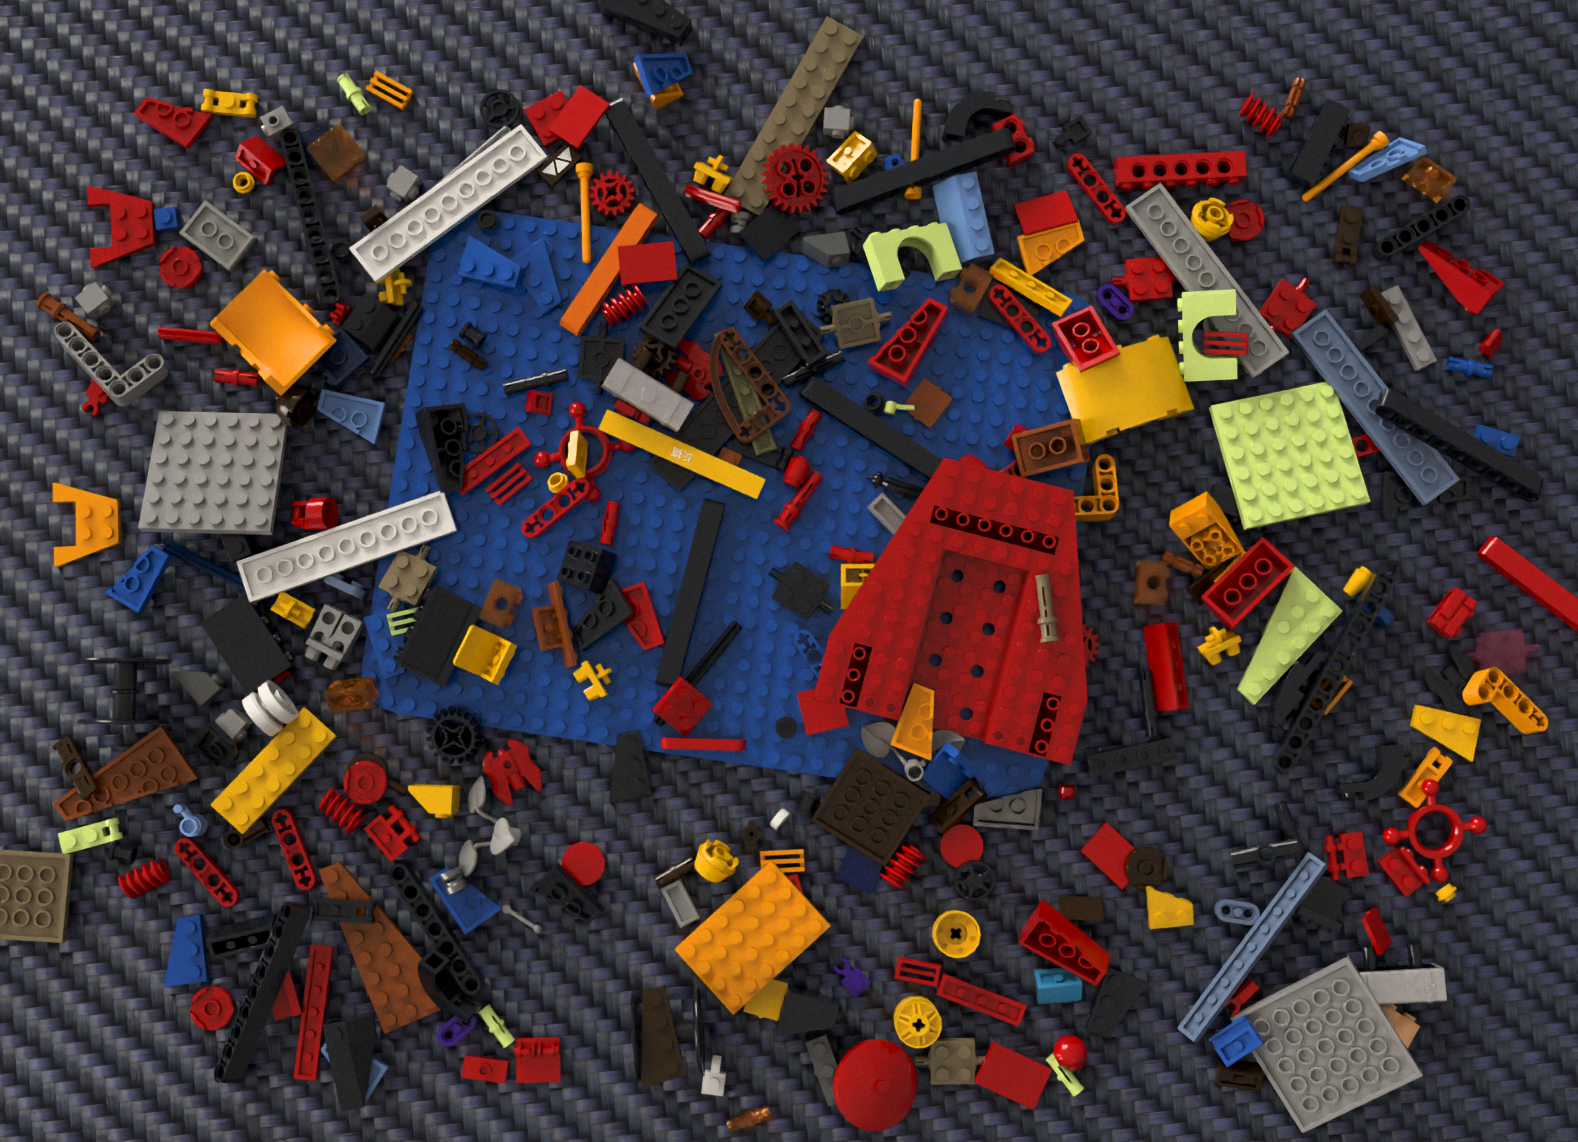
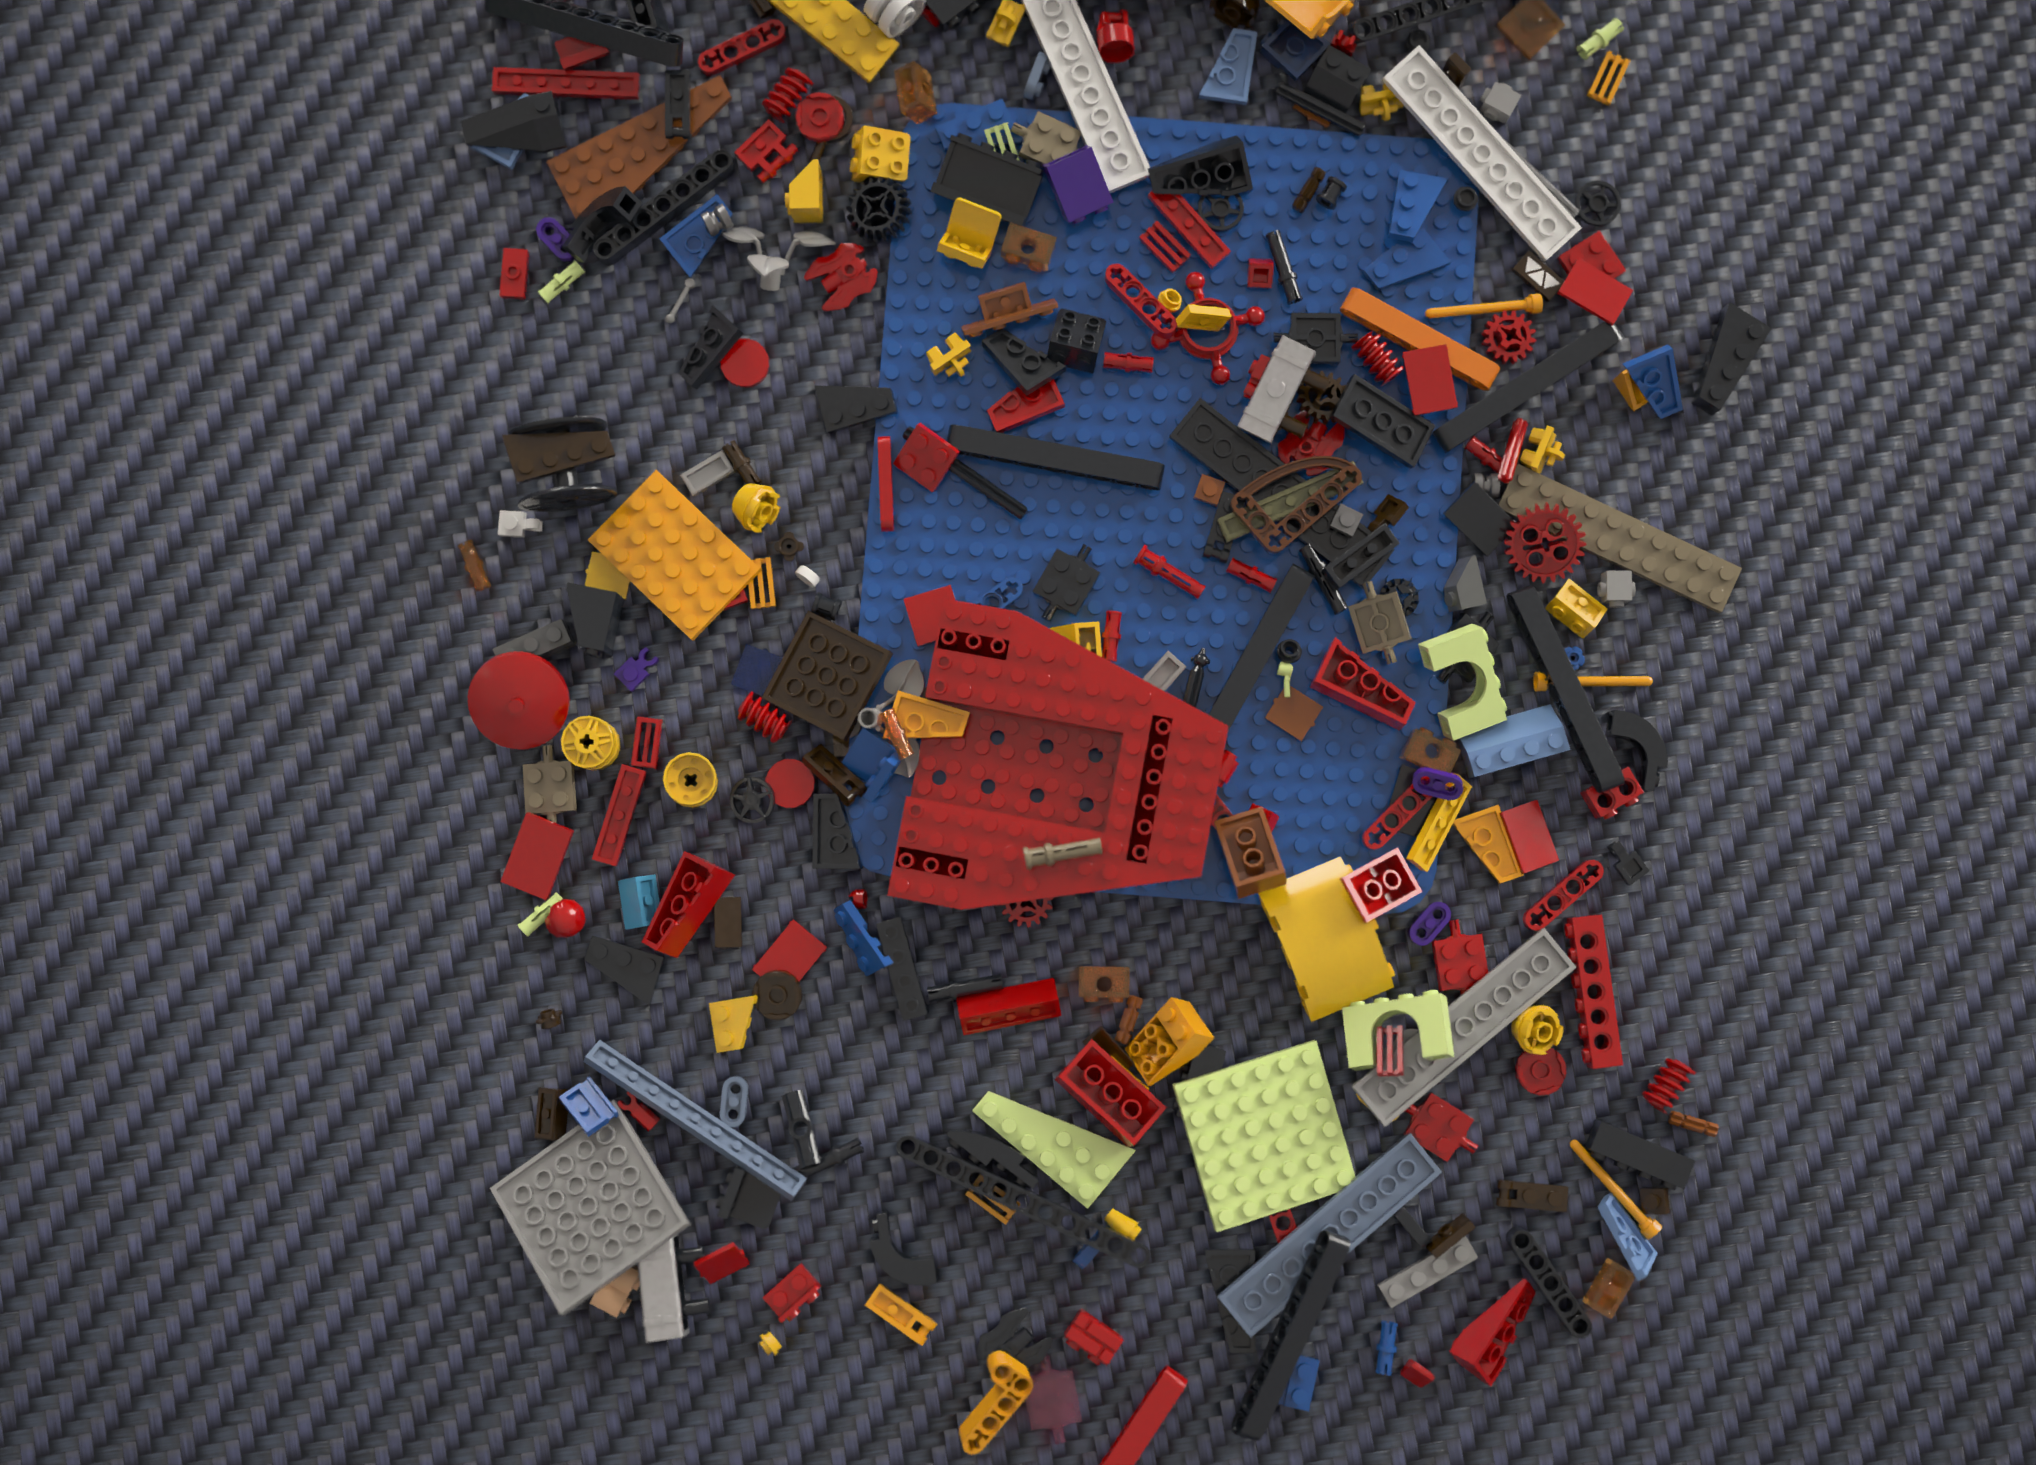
camera: 85 degrees right, 0 degrees up
(333, 635) = (980, 68): light grey hips -> none
(404, 730) = (880, 154): none -> yellow bracket
(448, 555) = (1078, 184): none -> dark purple brick
(538, 1060) = (527, 329): red hinge -> none
(682, 454) = (1212, 435): yellow tile -> none
(765, 344) = (1346, 520): none -> flat silver plate
(786, 727) = (910, 575): black plate -> none
(796, 471) = (1202, 567): red brick -> none
(930, 747) = (896, 733): none -> clear orange pin
(1000, 285) = (1437, 783): none -> dark purple plate
(1101, 496) = (1198, 919): light orange beam -> none
(1110, 788) = (864, 946): none -> blue wing
(1157, 1072) = (549, 1018): none -> dark brown plate
(1217, 642) = (1040, 1063): yellow hips -> none
(1352, 853) = (807, 1233): red plate -> none
(1452, 730) = (958, 1340): yellow wing -> none
(1477, 825) = (791, 1333): red piece -> none

